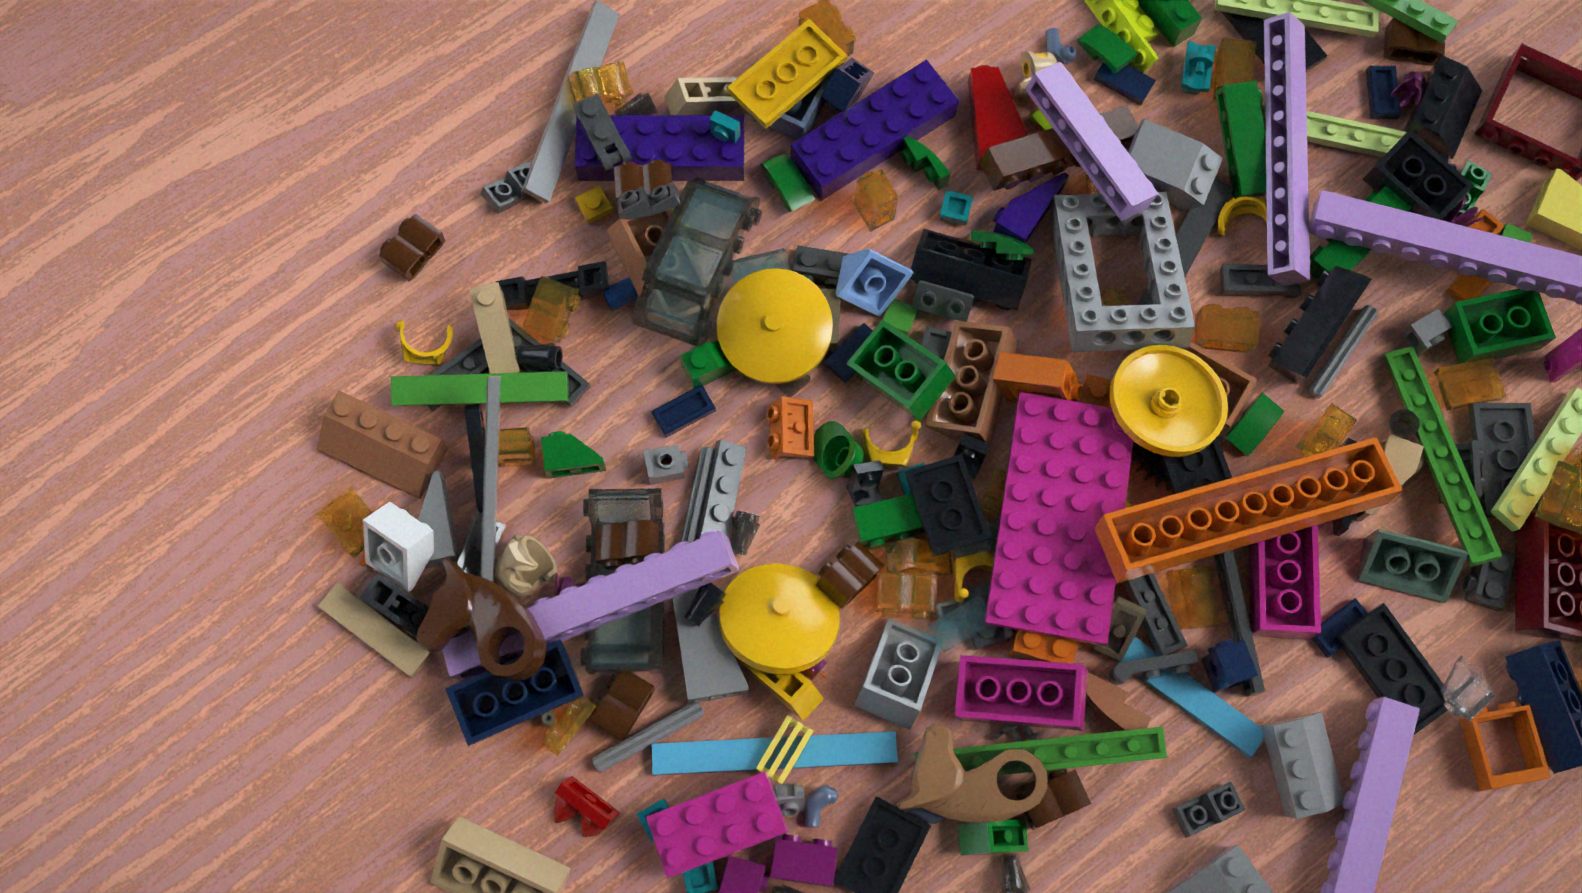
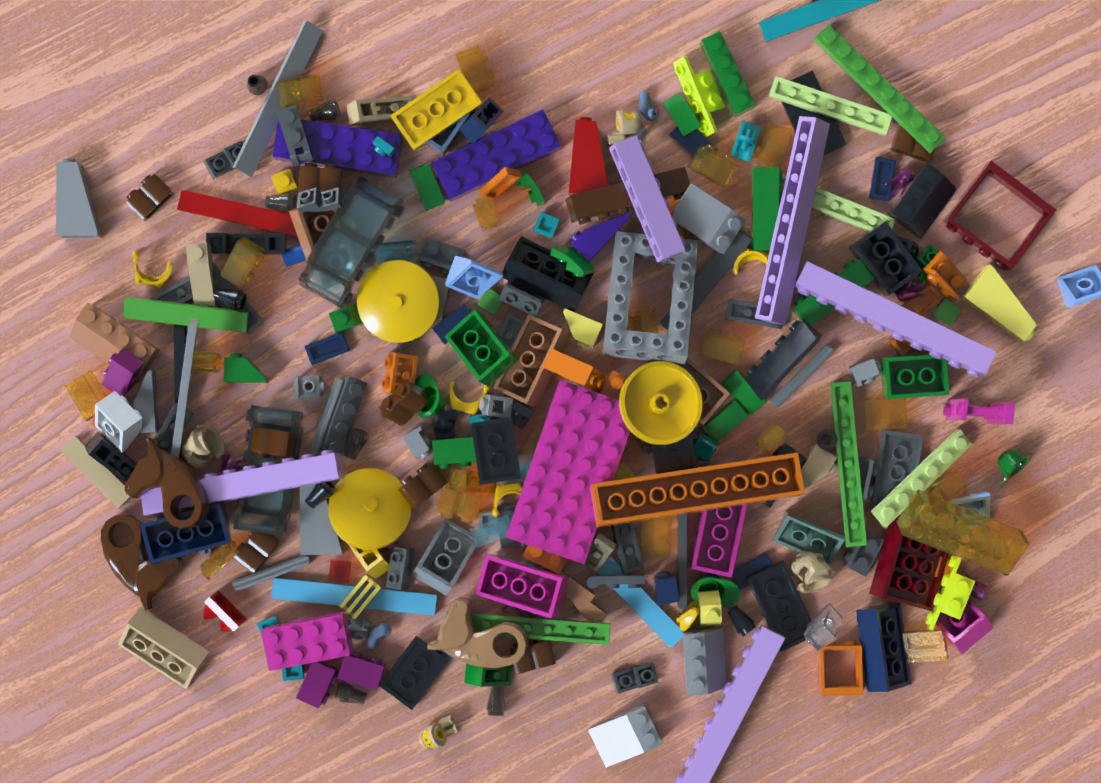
camera: 10 degrees right, 15 degrees up
(309, 275) = (74, 203): none -> light grey slope
(398, 477) = (122, 372): none -> magenta brick
(435, 755) = (132, 566): none -> reddish brown animal
(533, 252) = (236, 212): none -> red tile
(540, 87) = (260, 87): none -> black cone
(593, 228) = (282, 202): none -> clear smoke cone
(748, 717) = (340, 570): none -> clear red plate
(804, 462) = (403, 403): none -> reddish brown brick
(832, 518) = (418, 443): none -> light grey brick
(836, 697) = (400, 567): none -> dark grey bracket
(889, 154) = (500, 183): none -> orange tile
(933, 447) = (502, 407): none -> light grey brick
(1033, 330) = (582, 328): none -> light yellow slope
(1163, 101) = (713, 165): none -> clear yellow brick
(1238, 461) = (705, 447): none -> teal plate
(1270, 702) = (687, 616): none -> yellow helmet
(1273, 382) = (742, 392): none -> green slope
(1298, 688) = (709, 609): none -> light yellow slope
(1299, 660) = (728, 590): none -> green piece
(1345, 701) = (741, 621): none -> black cone
(1429, 611) = (811, 571): none -> tan helmet
(1501, 193) = (945, 276): none -> orange bracket

